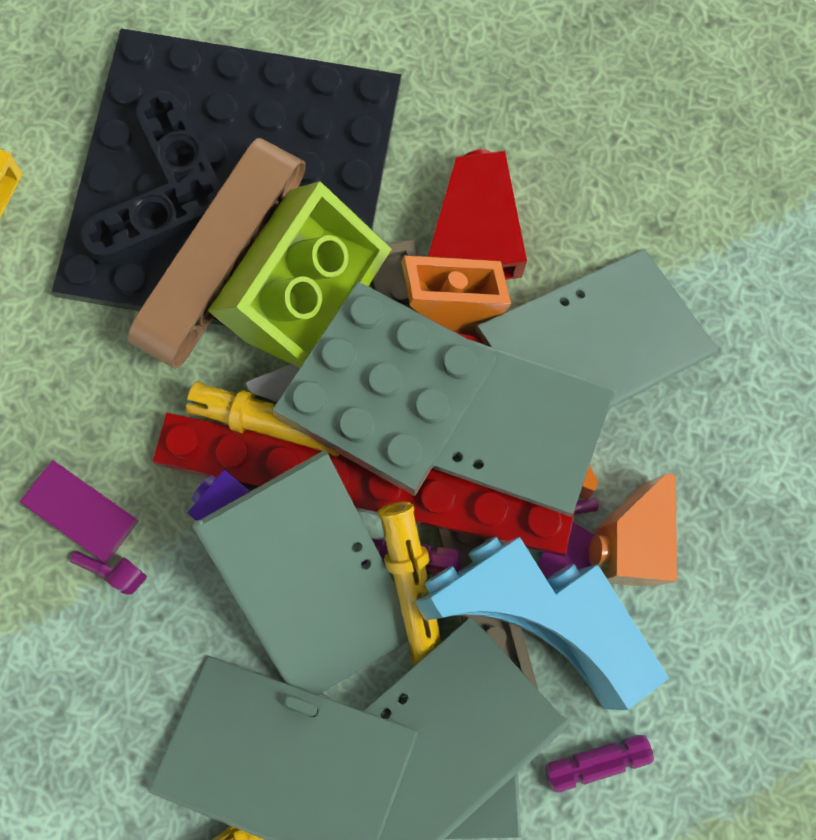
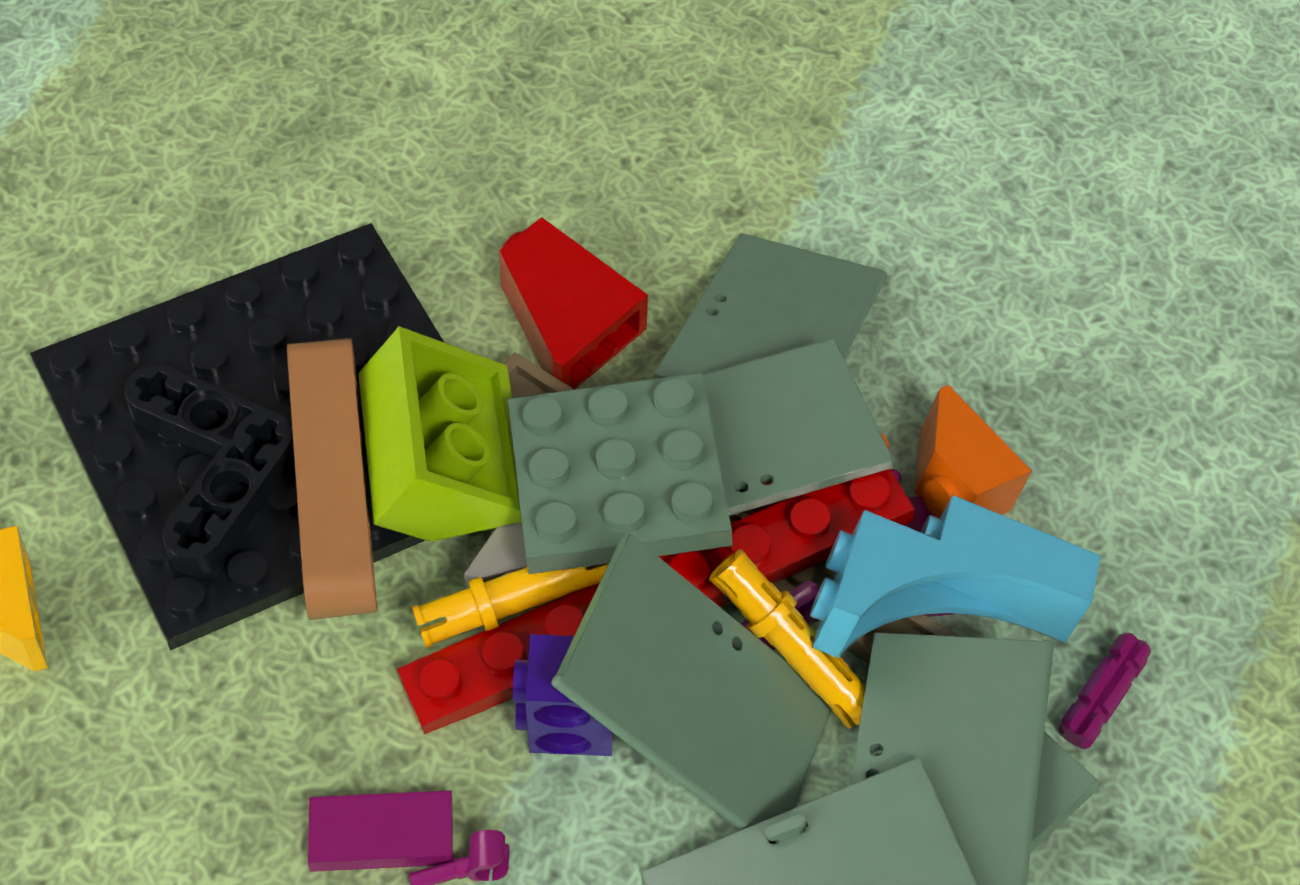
camera: 35 degrees left, 20 degrees down
(456, 291) = (606, 351): orange slope -> none

